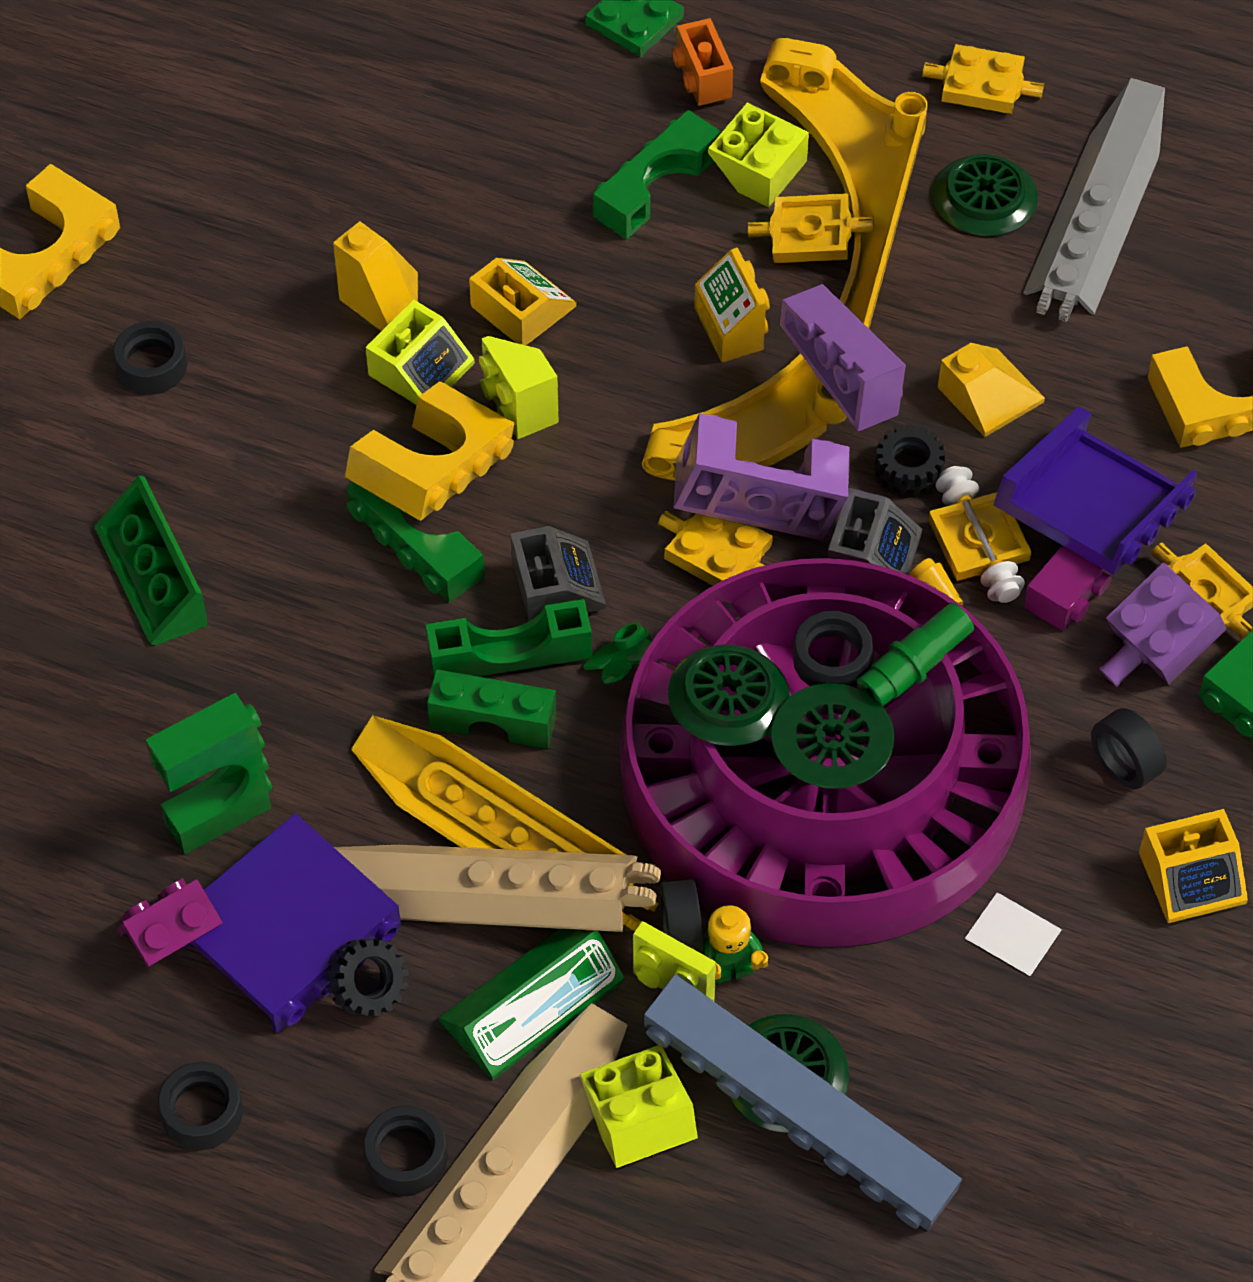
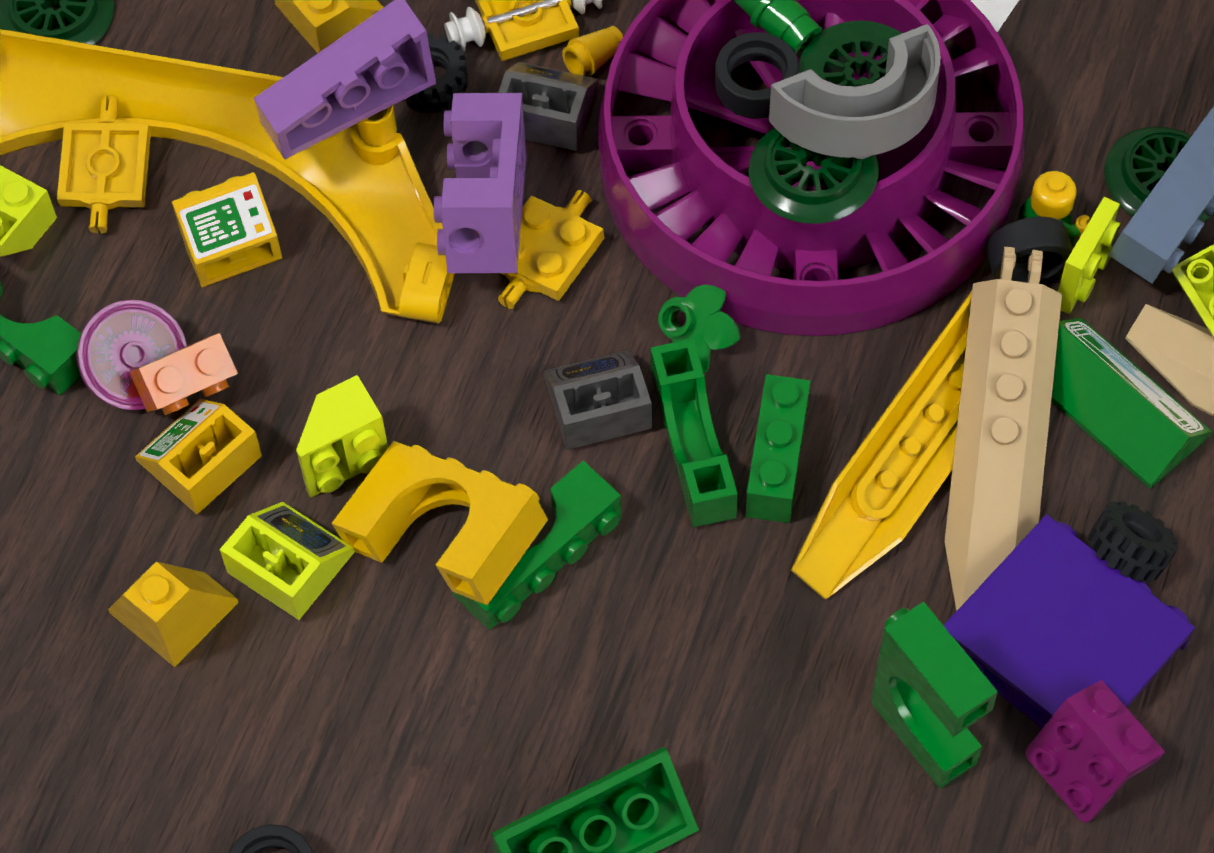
camera: 90 degrees left, 5 degrees up
(591, 281) = (184, 372): none -> brick
(614, 249) = (121, 340): none -> shield
(761, 730) = (865, 117): none -> light grey brick

